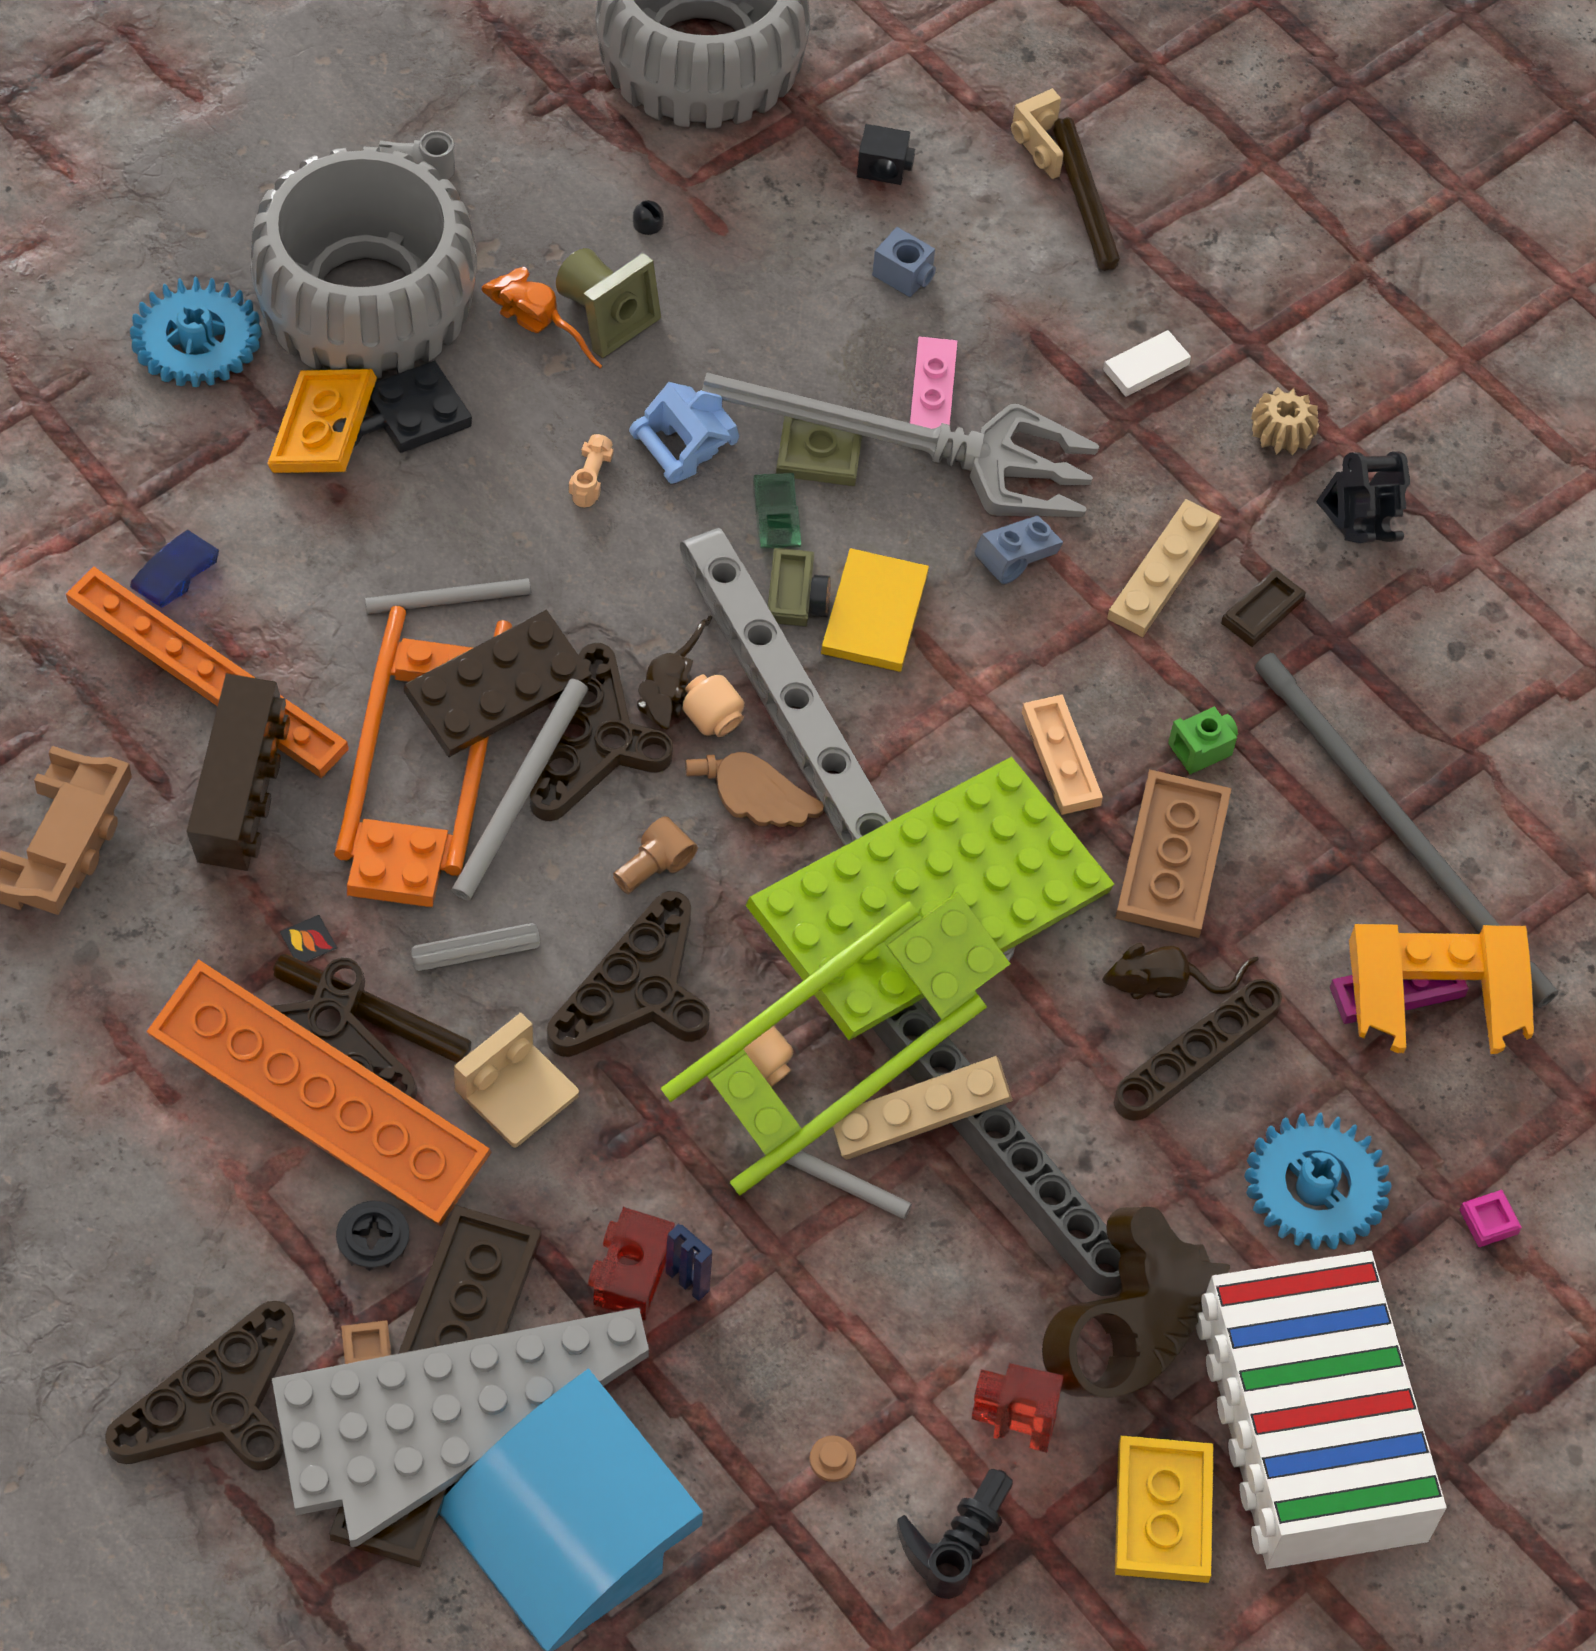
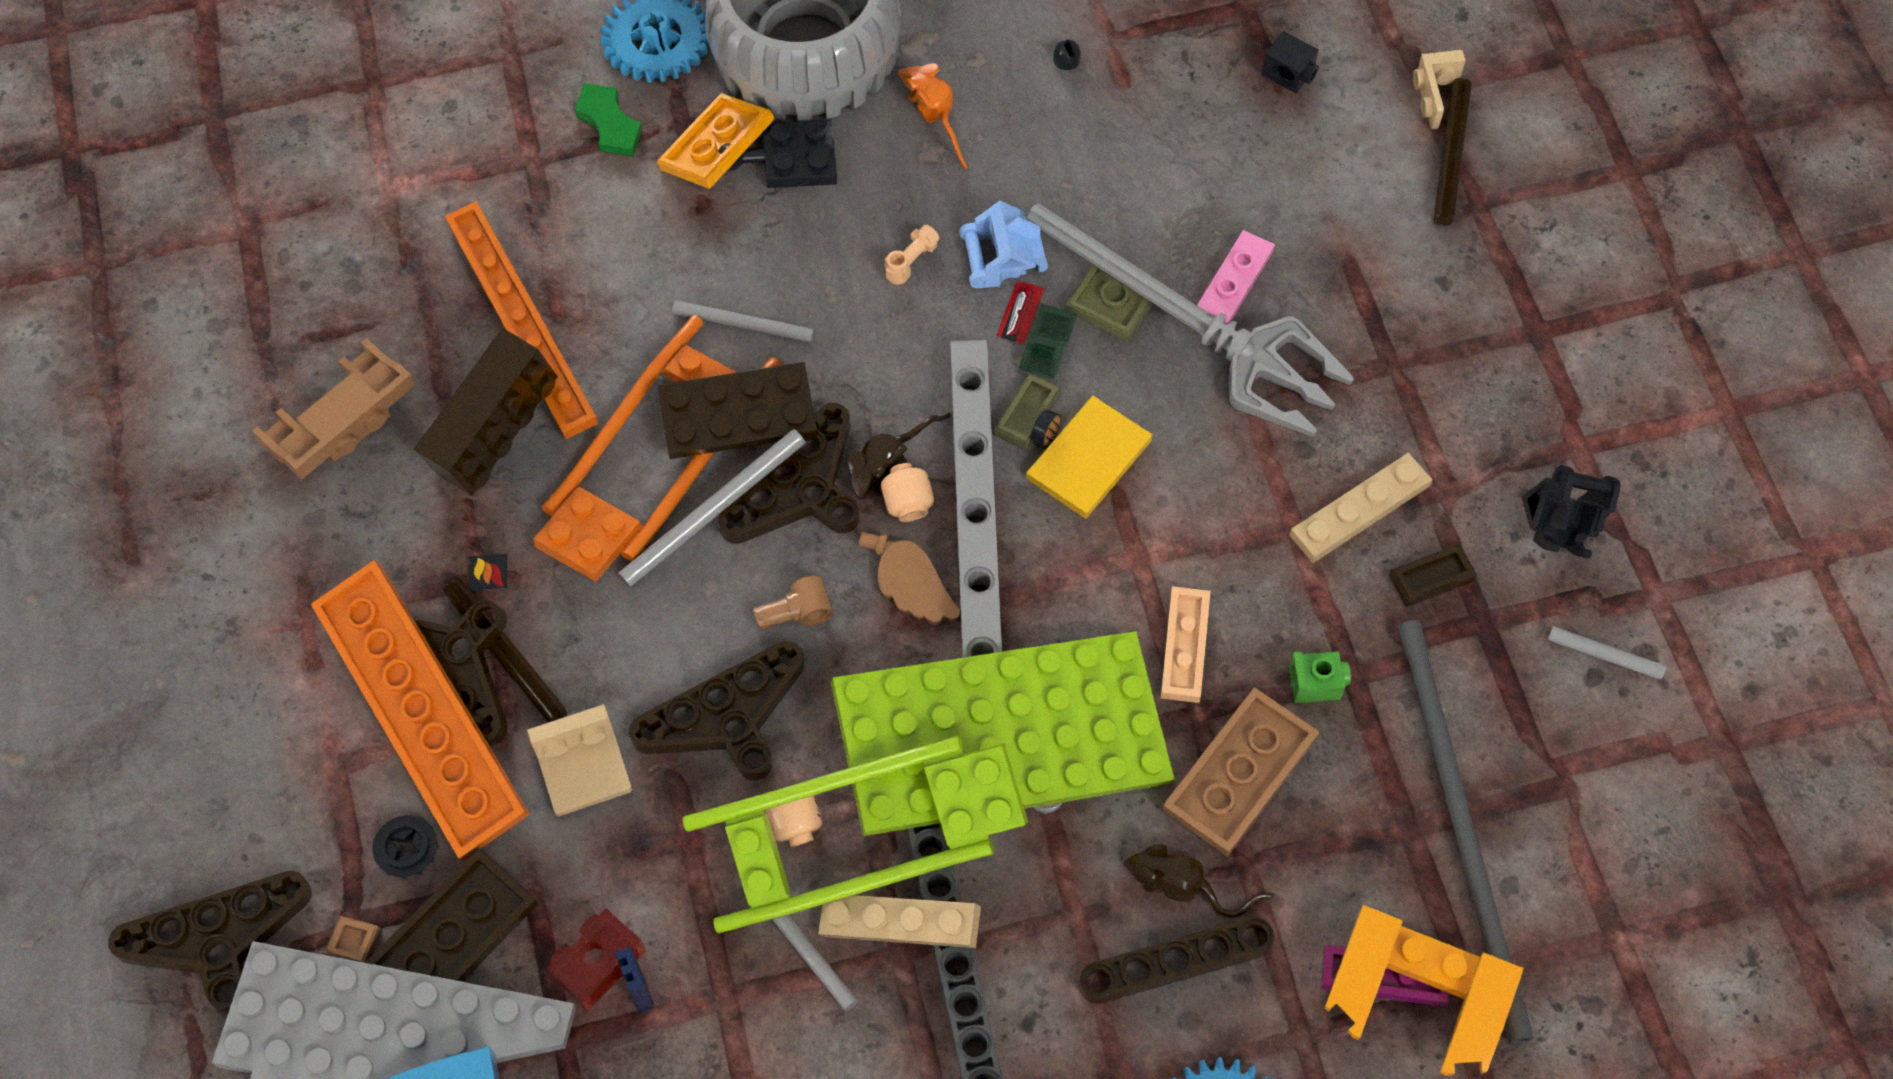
camera: 30 degrees right, 5 degrees up
(171, 569) = (534, 225): clear blue slope -> none
(174, 429) = (600, 108): none -> green tile
(475, 946) = (613, 629): light grey axle -> none
(615, 302) = (995, 116): olive plant -> none
(731, 492) = (1020, 312): none -> sticker
(904, 262) = (1257, 150): sand blue brick -> none
(1012, 547) = (1231, 443): sand blue plate -> none
(1146, 363) = (1434, 319): white tile -> none
(1285, 421) = (1532, 412): tan gear -> none
(1458, 622) = (1607, 653): none -> light grey bar

